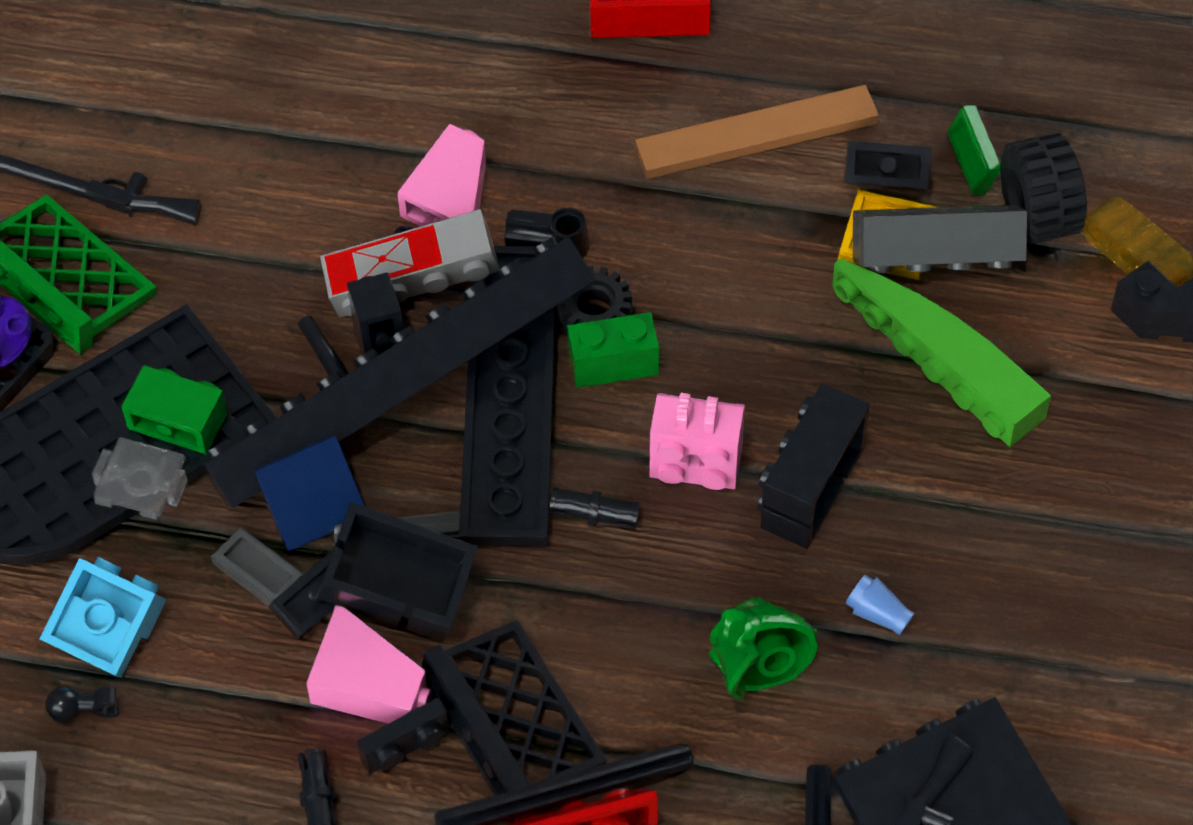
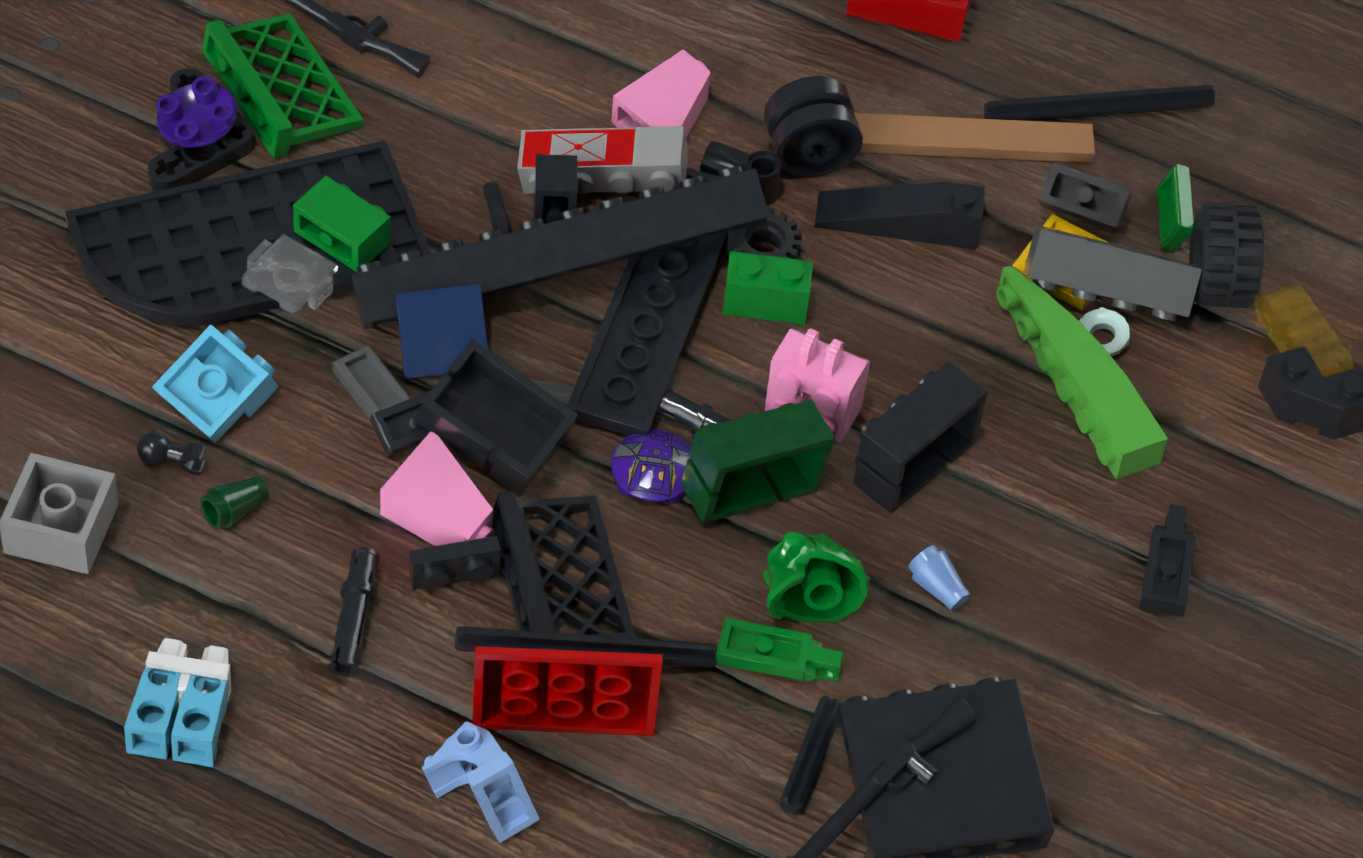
camera: 10 degrees right, 5 degrees down
(159, 739) = (232, 501): none -> dark green cone
(564, 571) = (651, 466): none -> dark purple dish
(603, 168) = (813, 126): none -> black wheel
(639, 551) = (726, 458): none -> dark green piece
(731, 222) = (919, 210): none -> black wedge
(748, 732) = (776, 652): none -> green hinge
(864, 61) = (1101, 103): none -> black axle
(953, 285) = (1112, 321): none -> light aqua piece
(1092, 524) = (1168, 565): none -> black hinge

